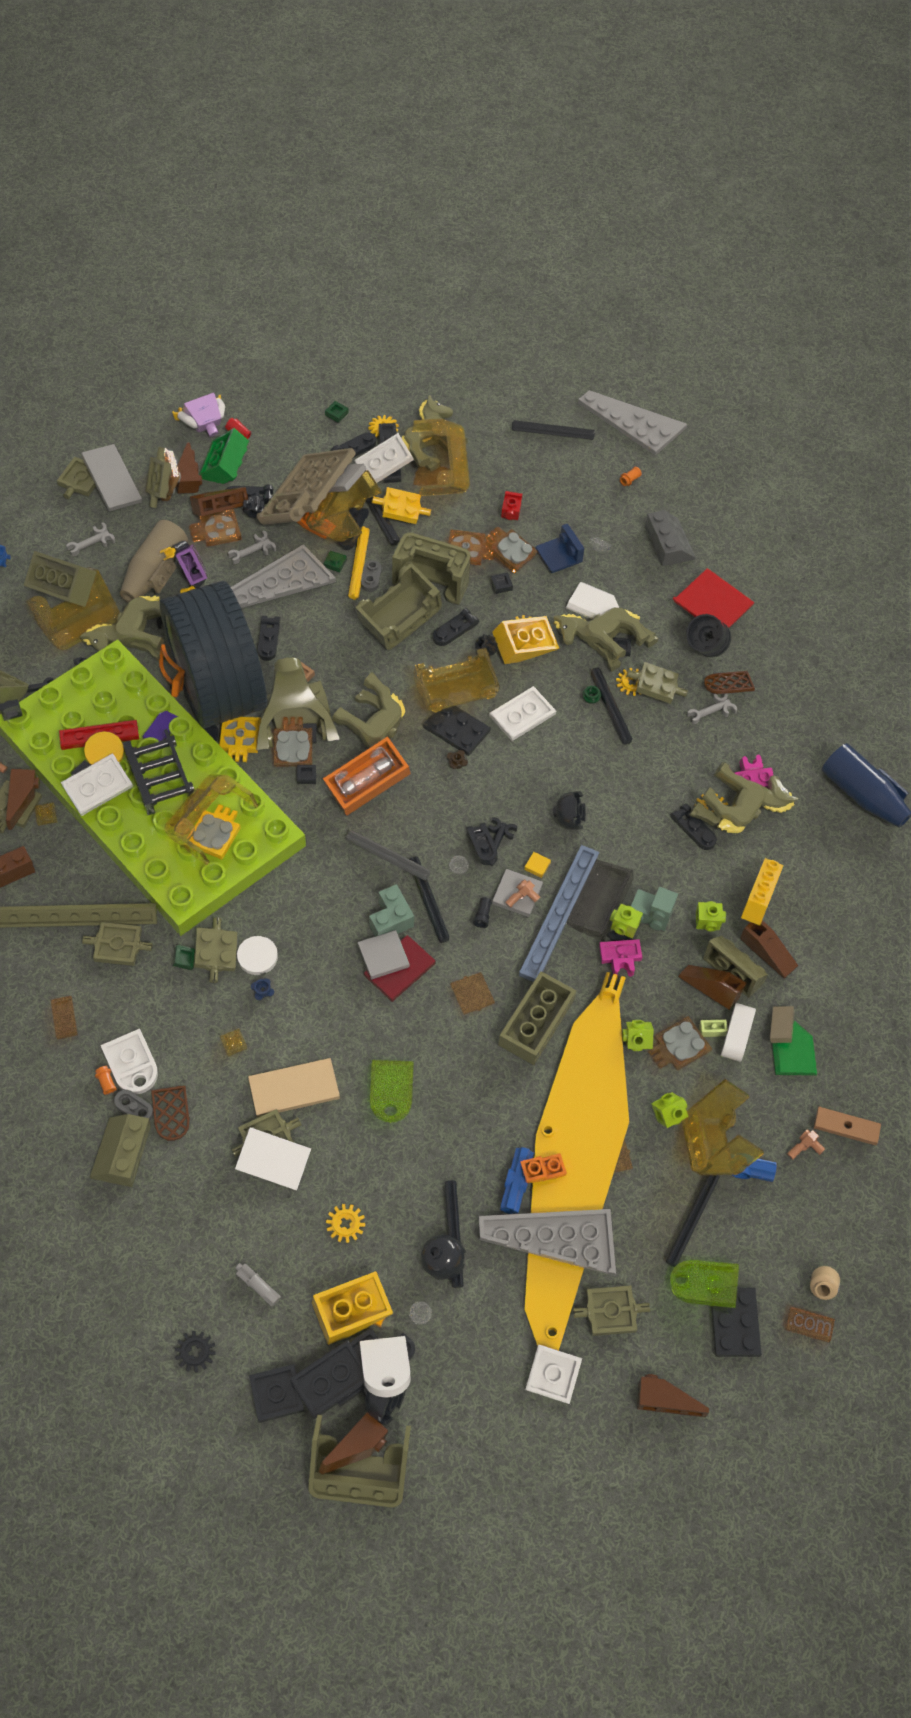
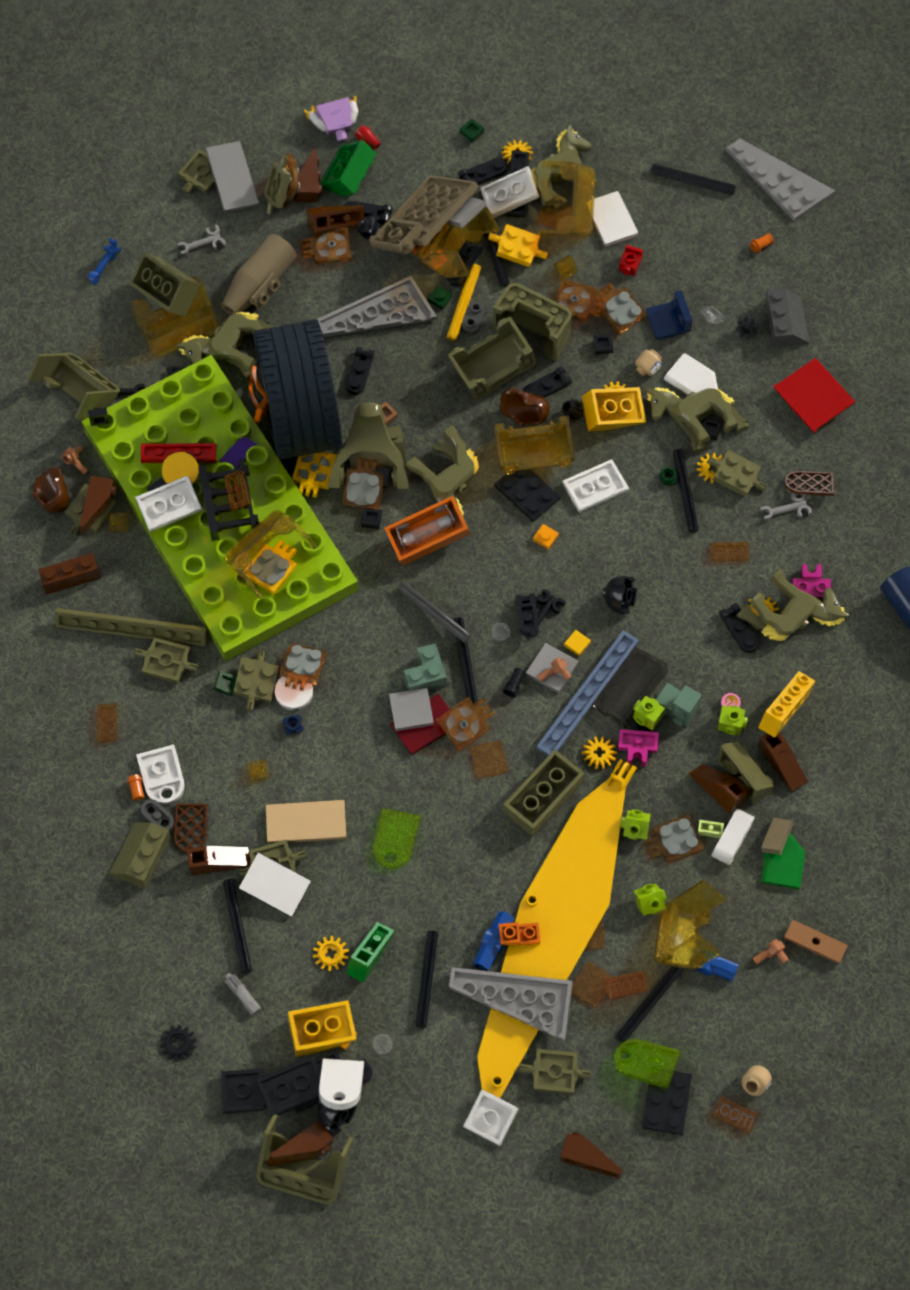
camera: 15 degrees right, 5 degrees up
(172, 772) = (240, 503): none -> clear orange tile
(190, 563) = (295, 285): torso -> none
(205, 1142) = (216, 859): none -> slope
(239, 1211) = (237, 926): none -> black axle
(261, 543) = (371, 267): light grey bar -> none
(262, 927) = (302, 665): none -> piece
(387, 1215) = (369, 952): none -> green slope
(438, 648) = (524, 407): none -> reddish brown piece
(441, 959) = (465, 722): none -> clear orange piece
(443, 1257) = (411, 998): black cylinder -> none
(451, 519) = (565, 267): none -> clear yellow tile
(457, 764) = (525, 528): dark brown plate -> none
(484, 767) = (545, 536): none -> light orange plate
(487, 473) = (613, 219): none -> white tile
(549, 594) = (648, 363): none -> tan head
(579, 975) = (594, 759): none -> yellow gear
(629, 1209) = (591, 984): none -> clear orange piece
(637, 555) = (747, 332): none -> black gear
(664, 1204) = (626, 985): none -> clear orange tile
(666, 756) = (729, 551): none -> clear orange tile
(699, 631) = (789, 429): black wheel -> none
(702, 896) = (730, 700): none -> tile

